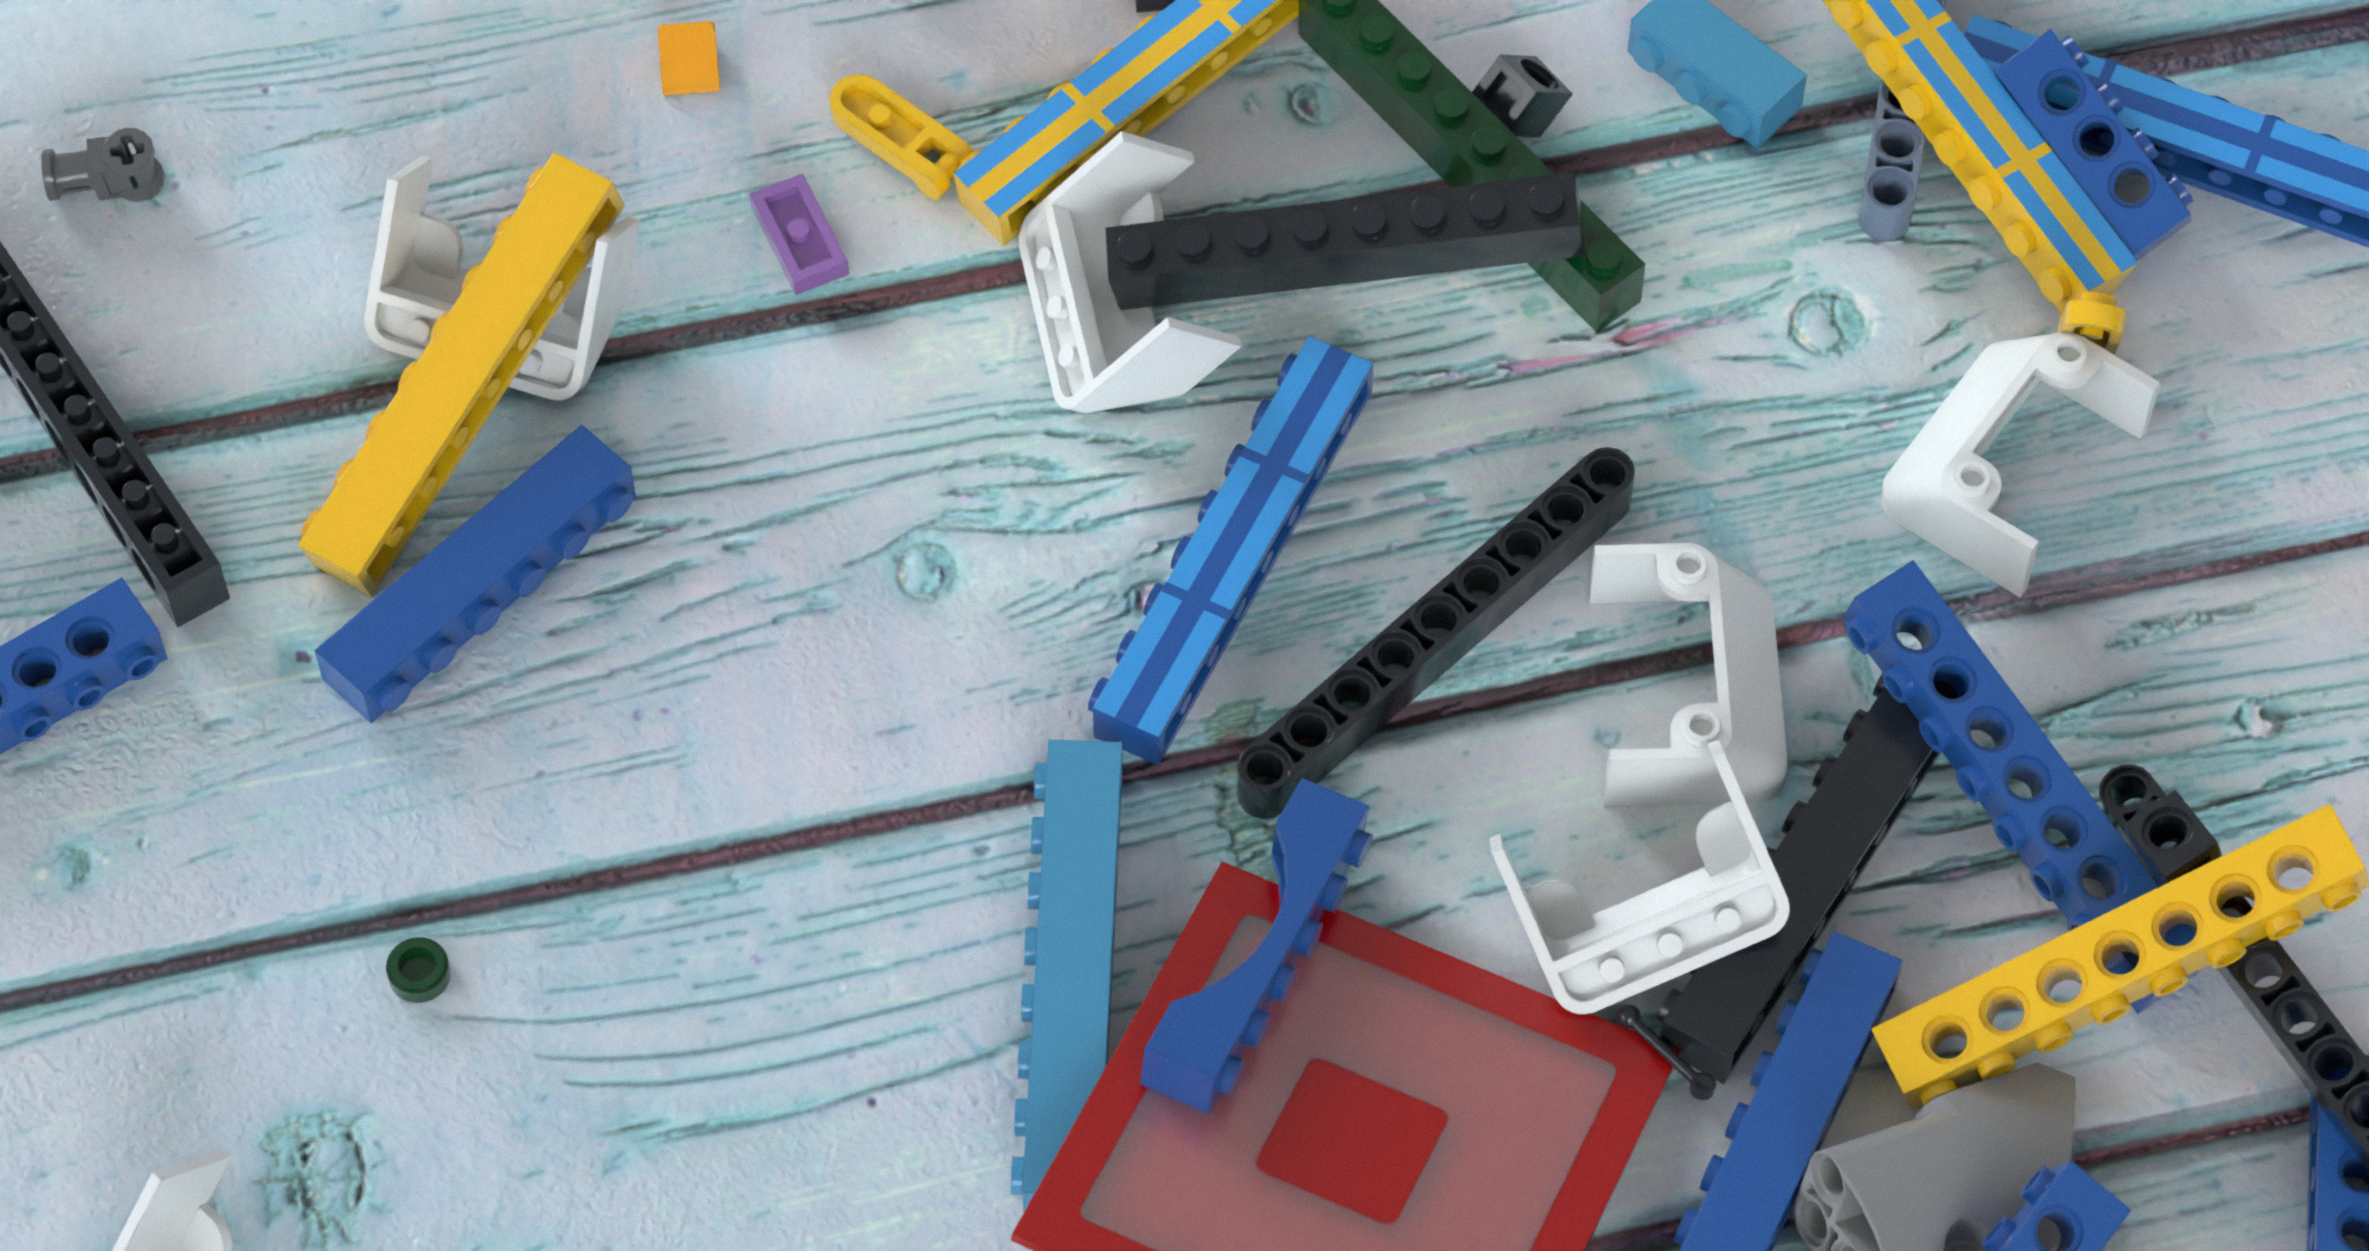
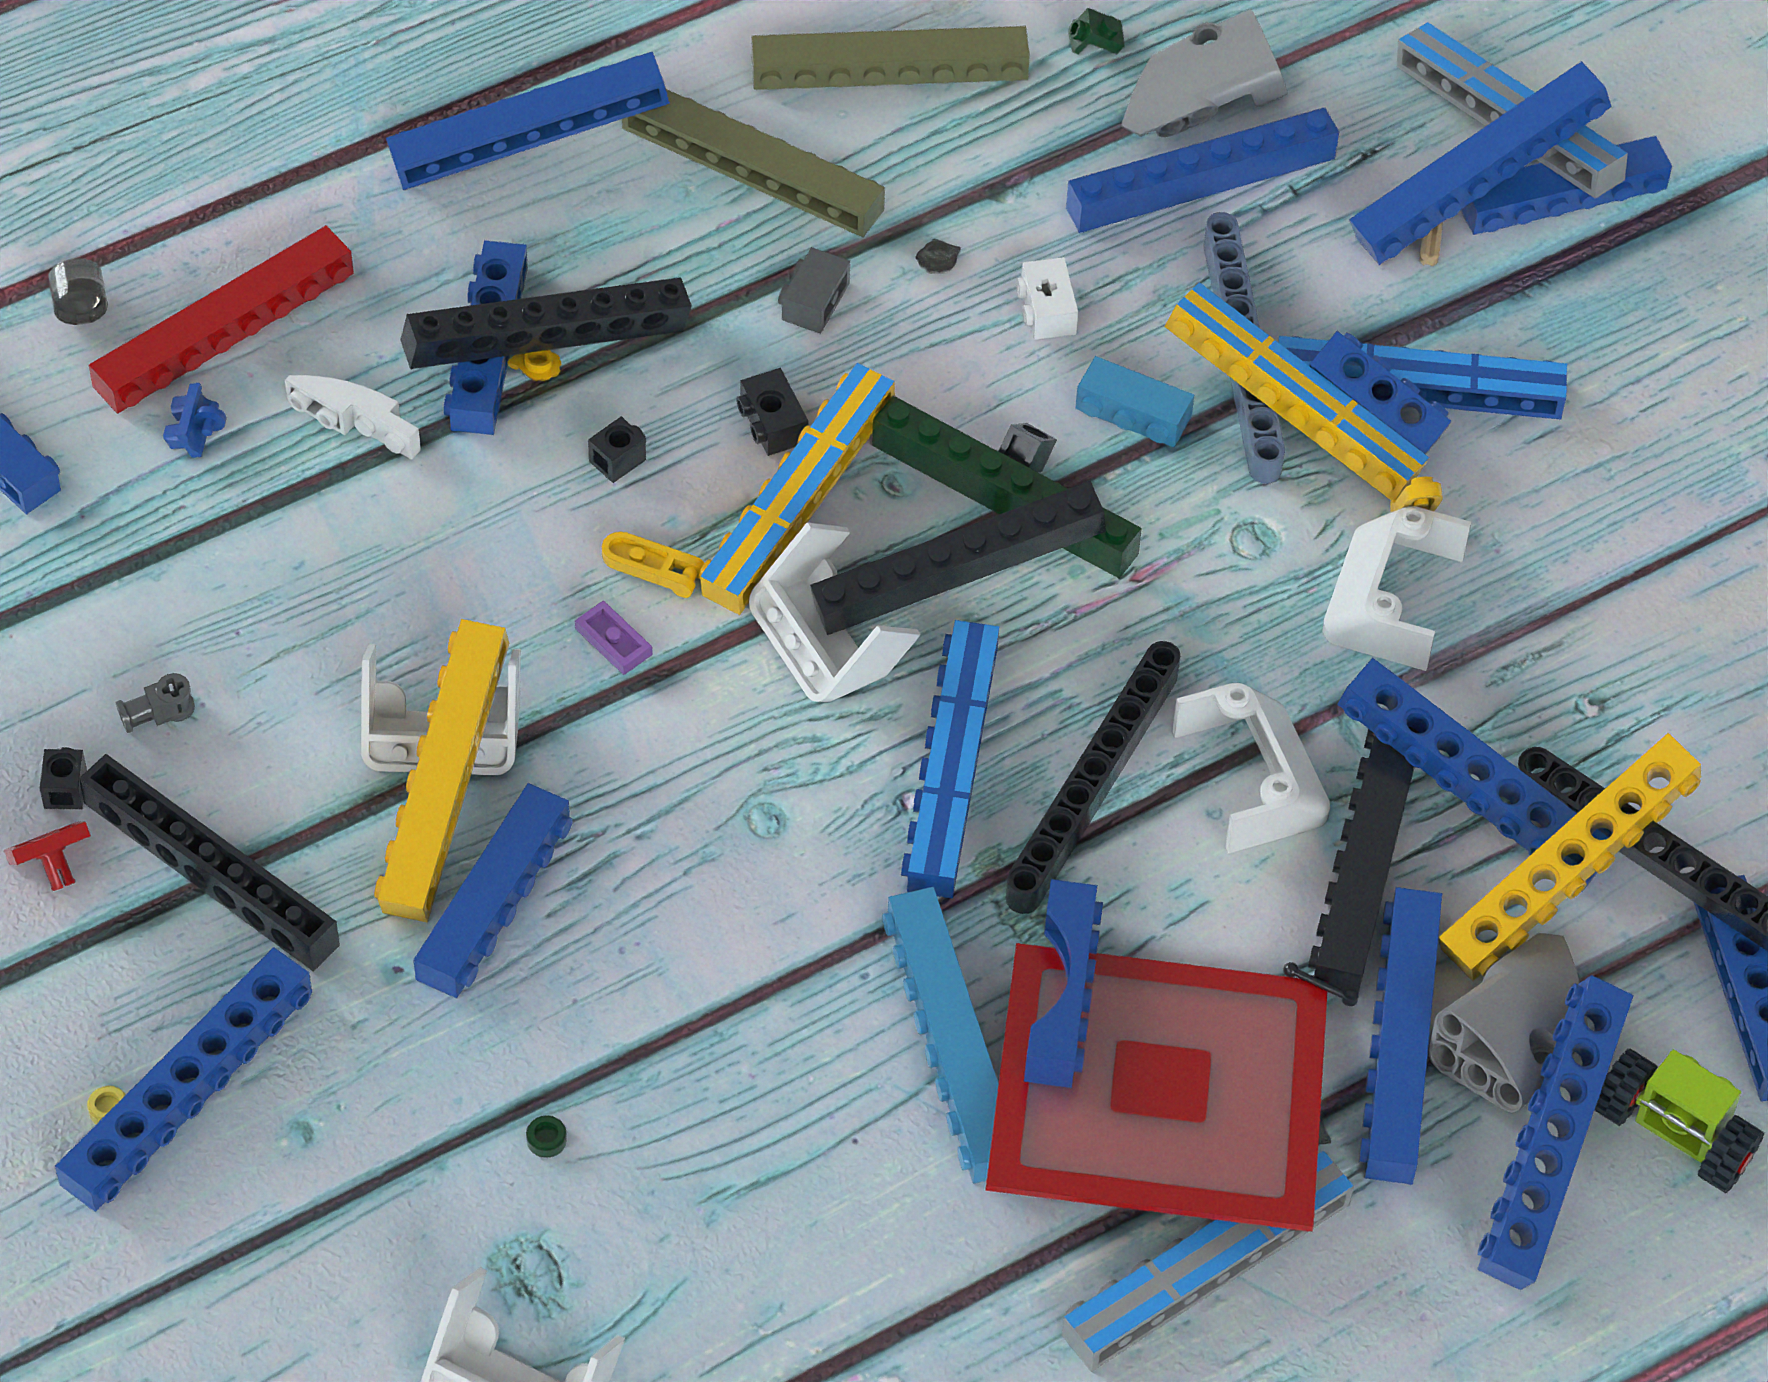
camera: 20 degrees left, 5 degrees down
(688, 58) = (502, 548): light orange slope -> none
(1661, 931) = (1301, 910): white windscreen -> none
(2165, 820) = (1575, 769): black brick -> none

